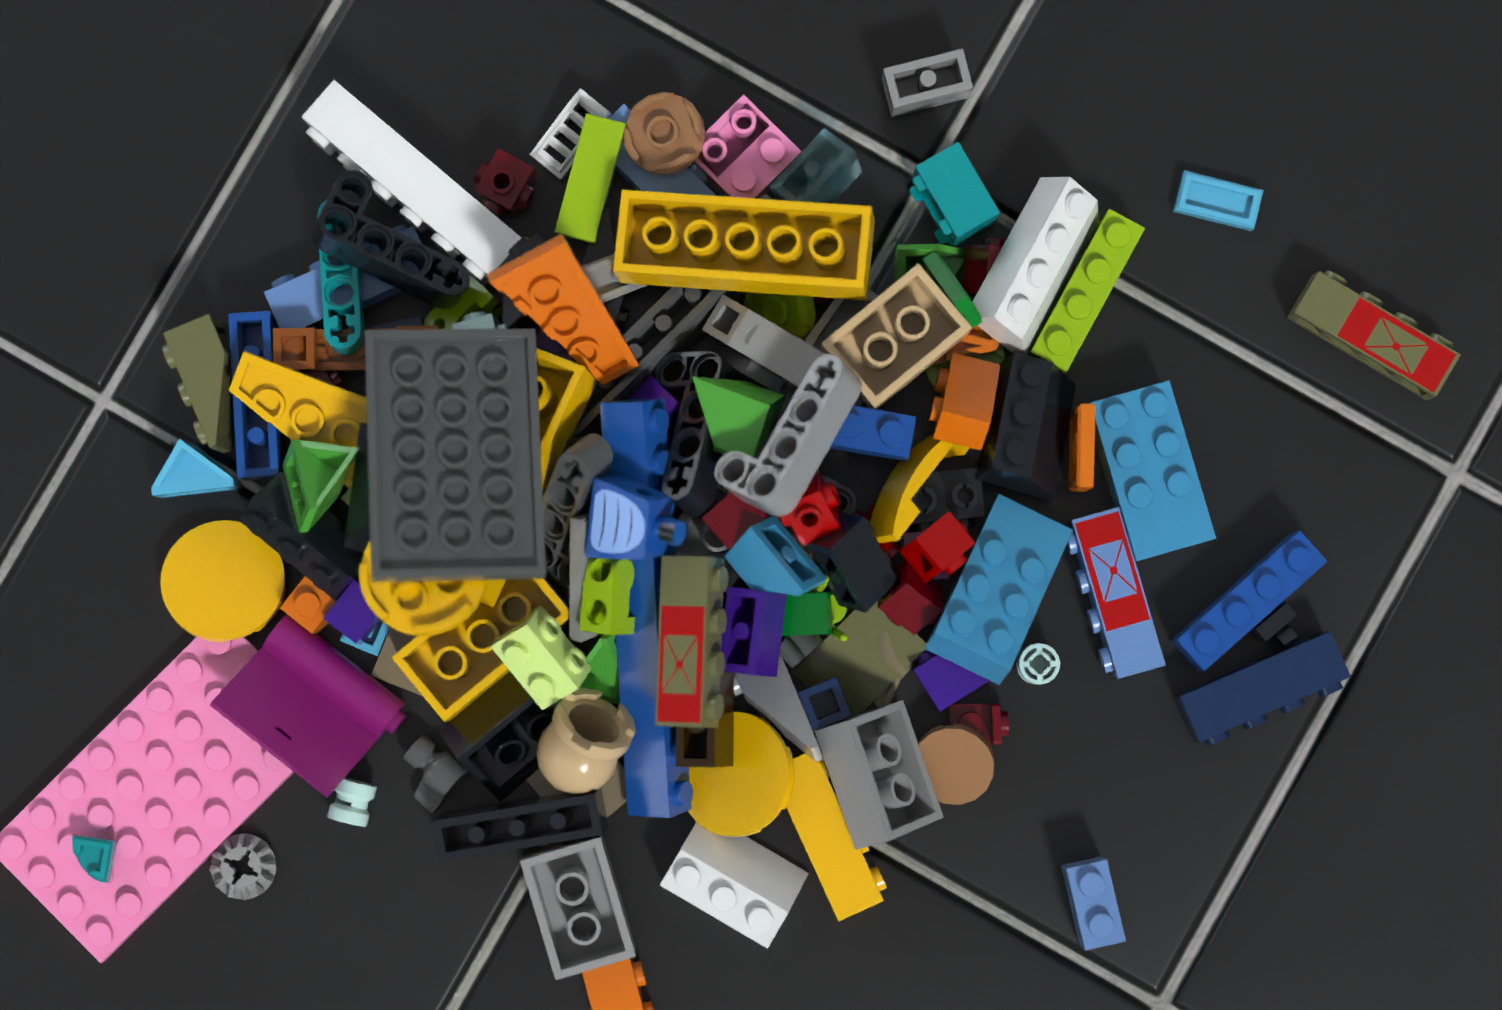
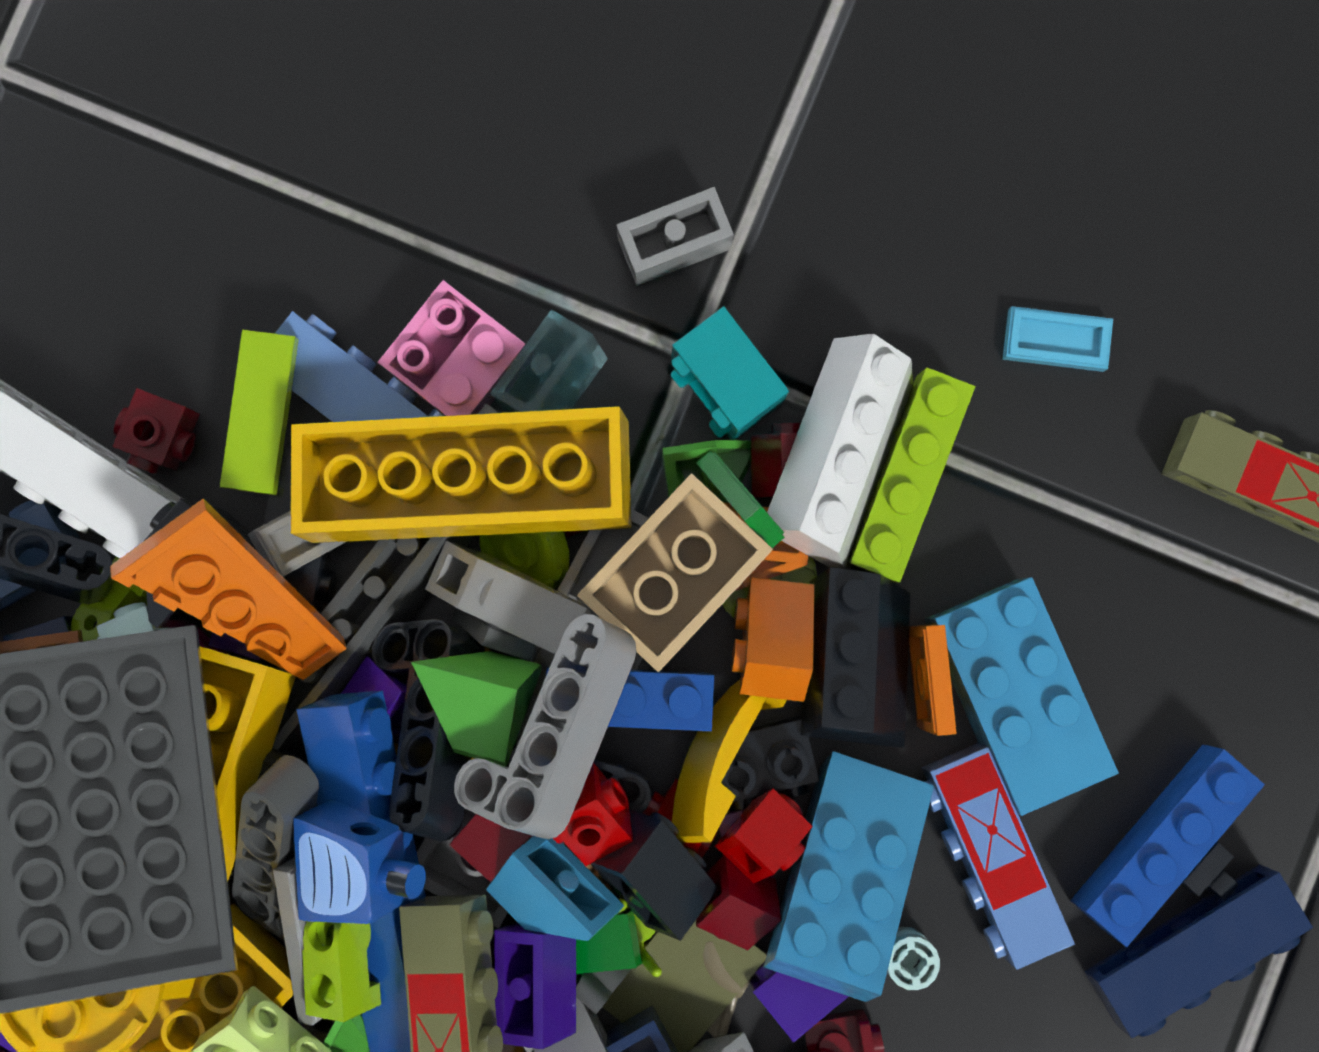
camera: 15 degrees left, 0 degrees up
(579, 100) = (227, 334): white slope -> none
(664, 133) = (346, 343): medium nougat tile -> none

